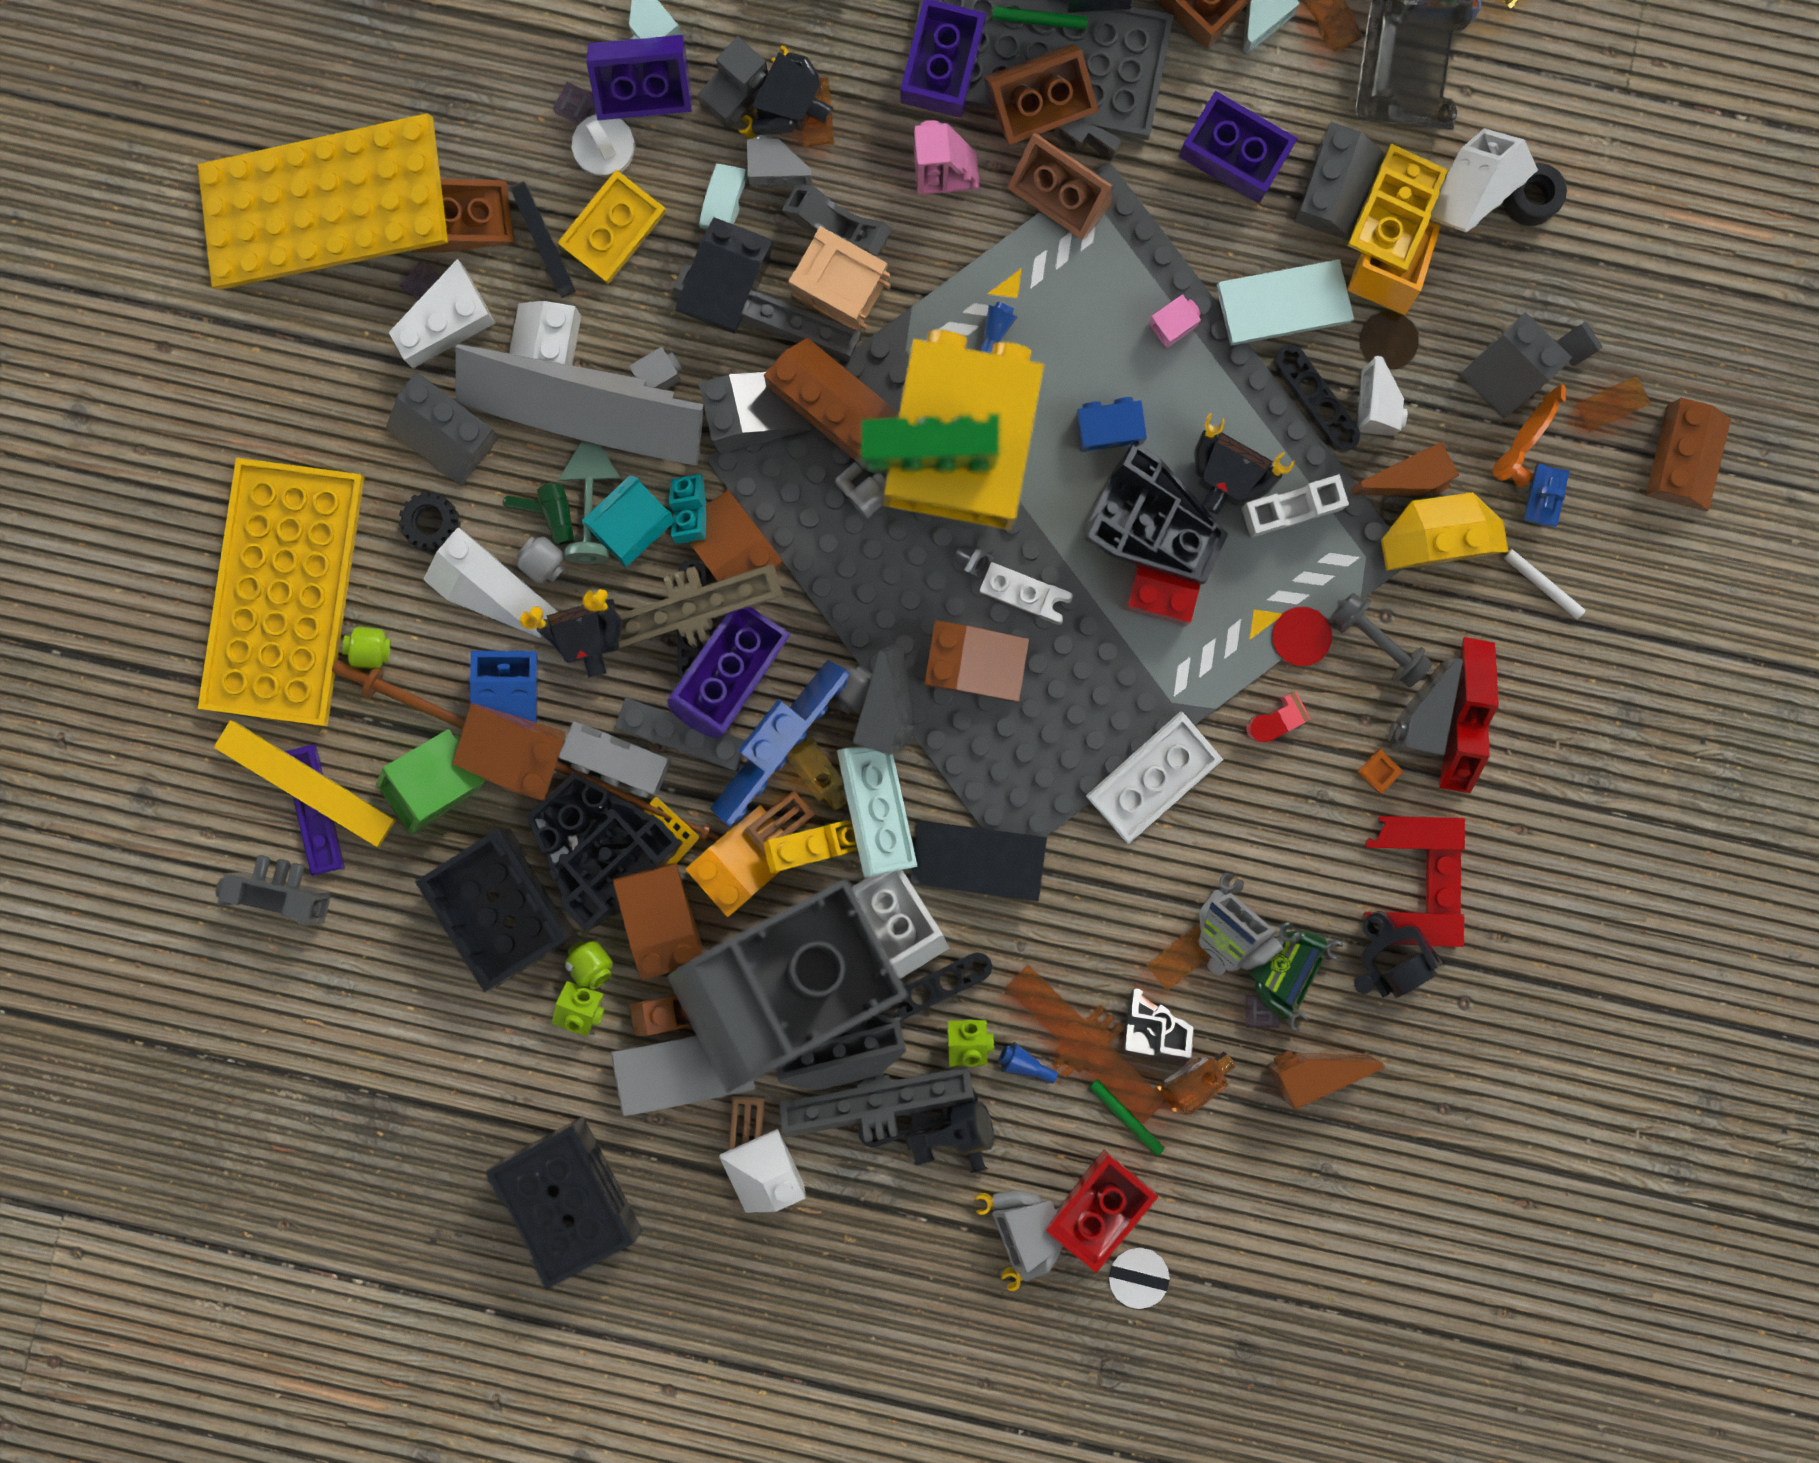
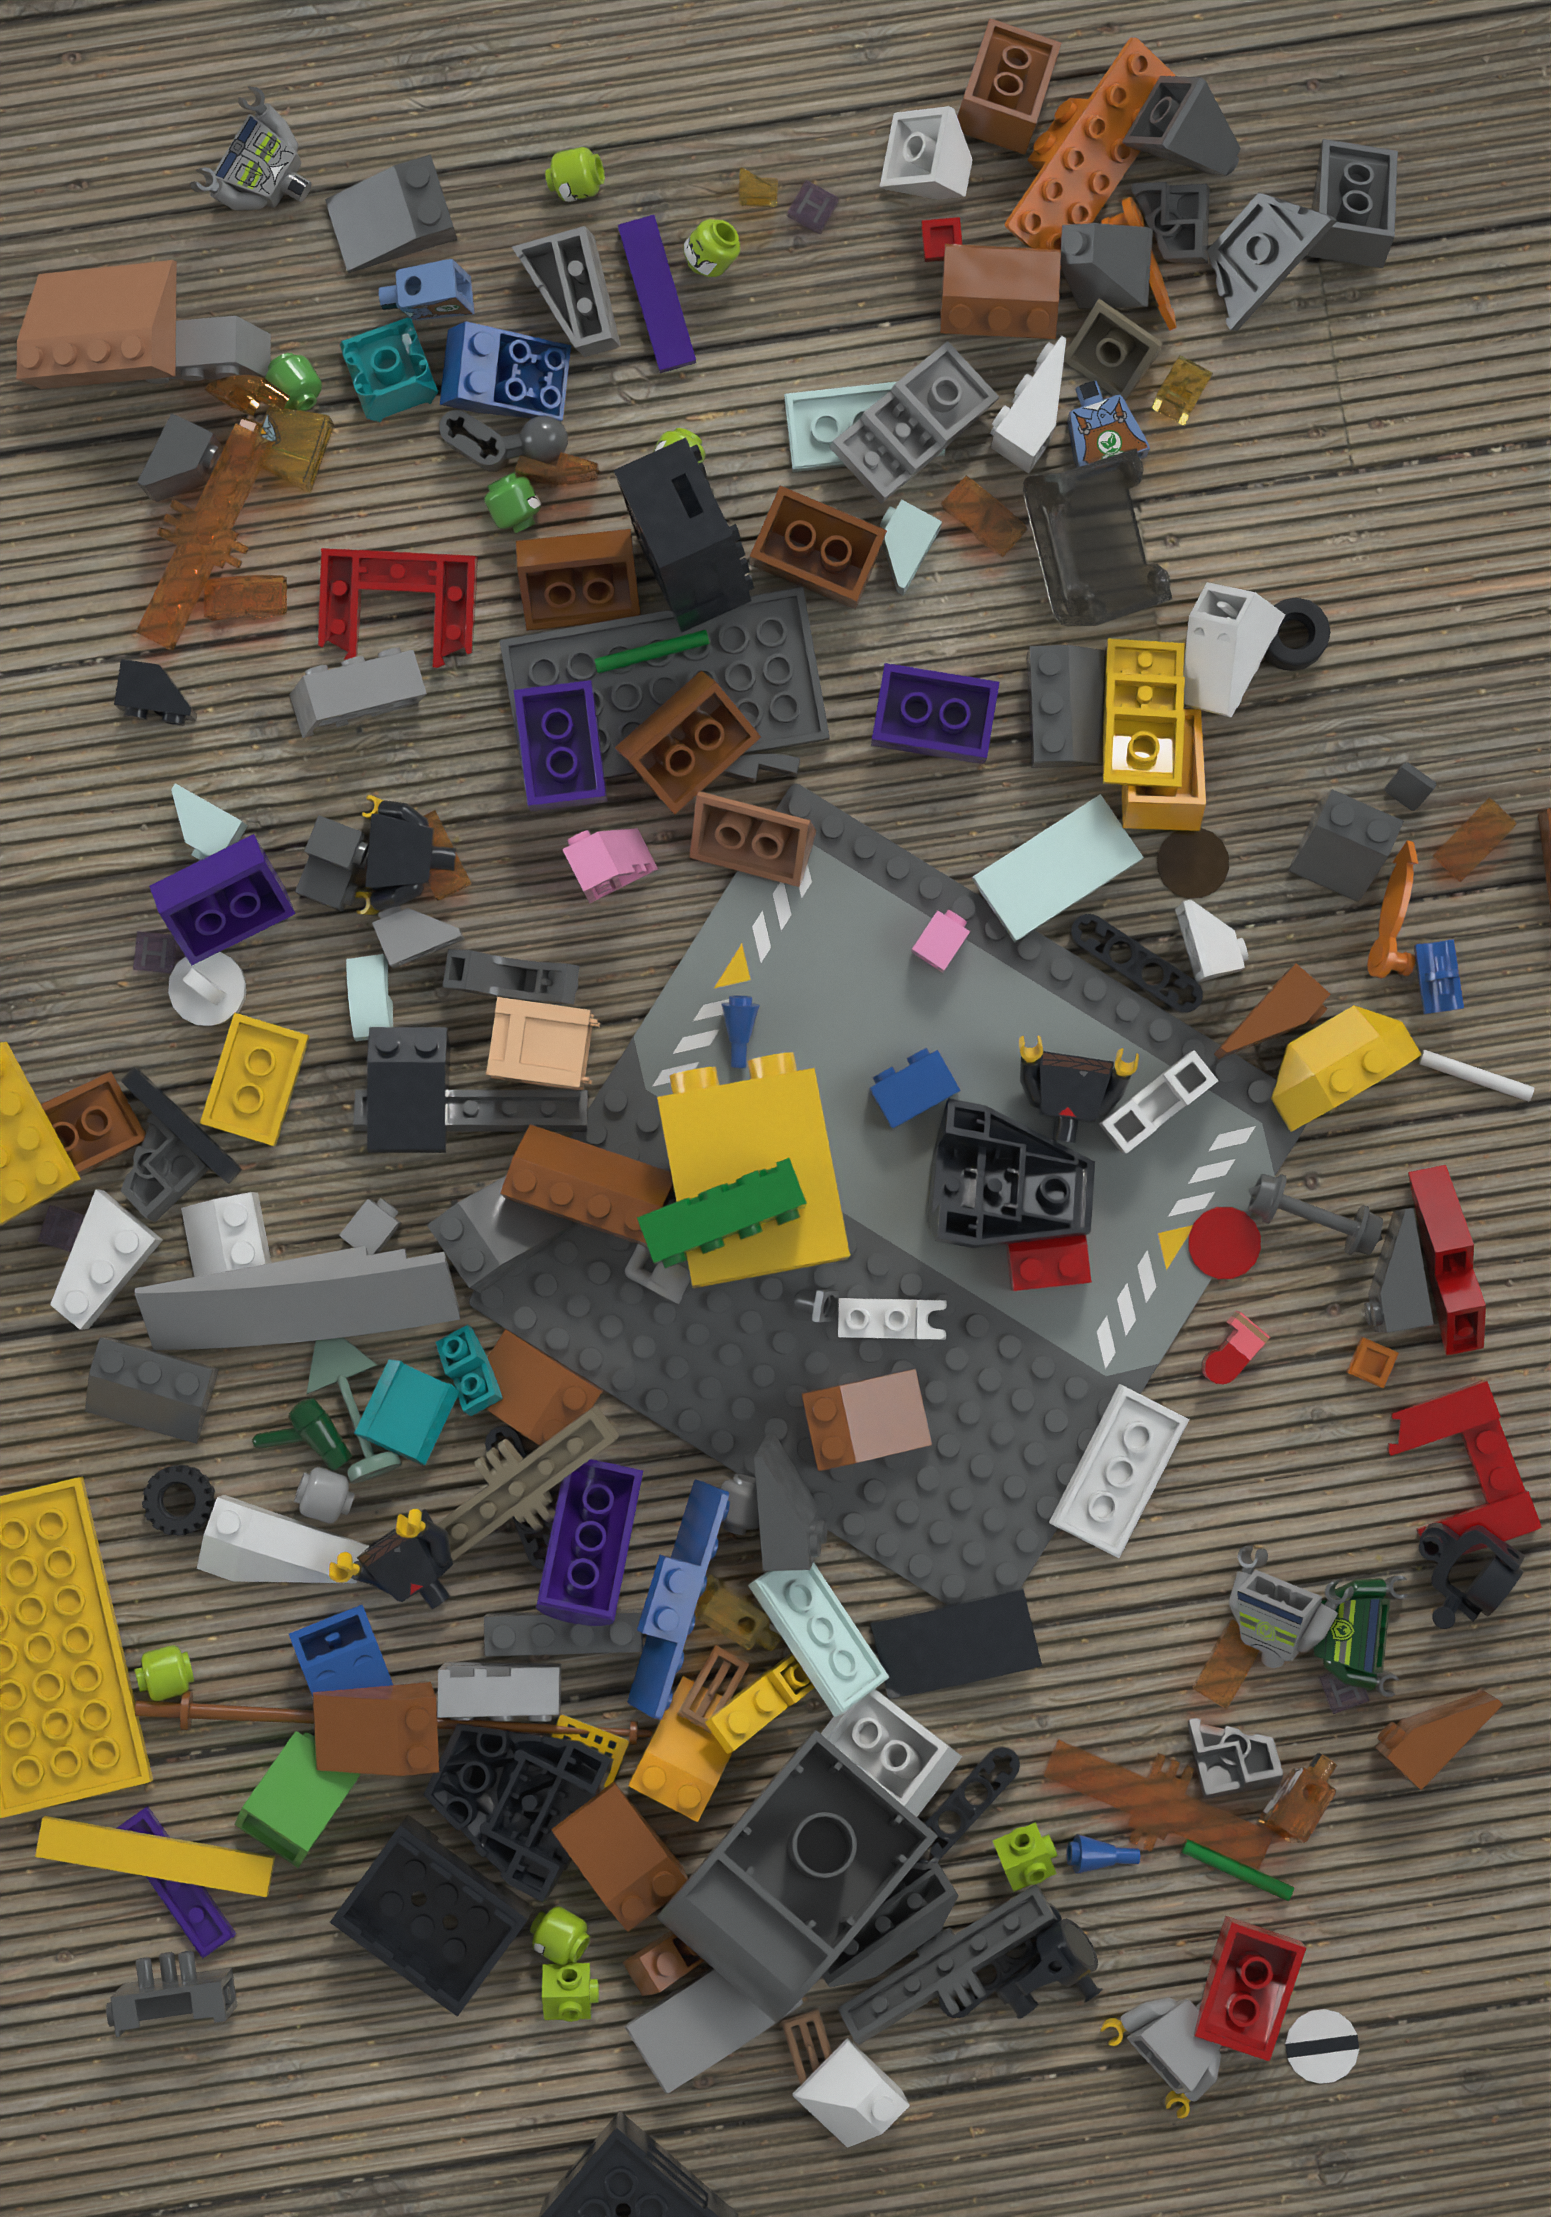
camera: 20 degrees left, 0 degrees up
(514, 269) = (161, 1171): none -> dark grey slope

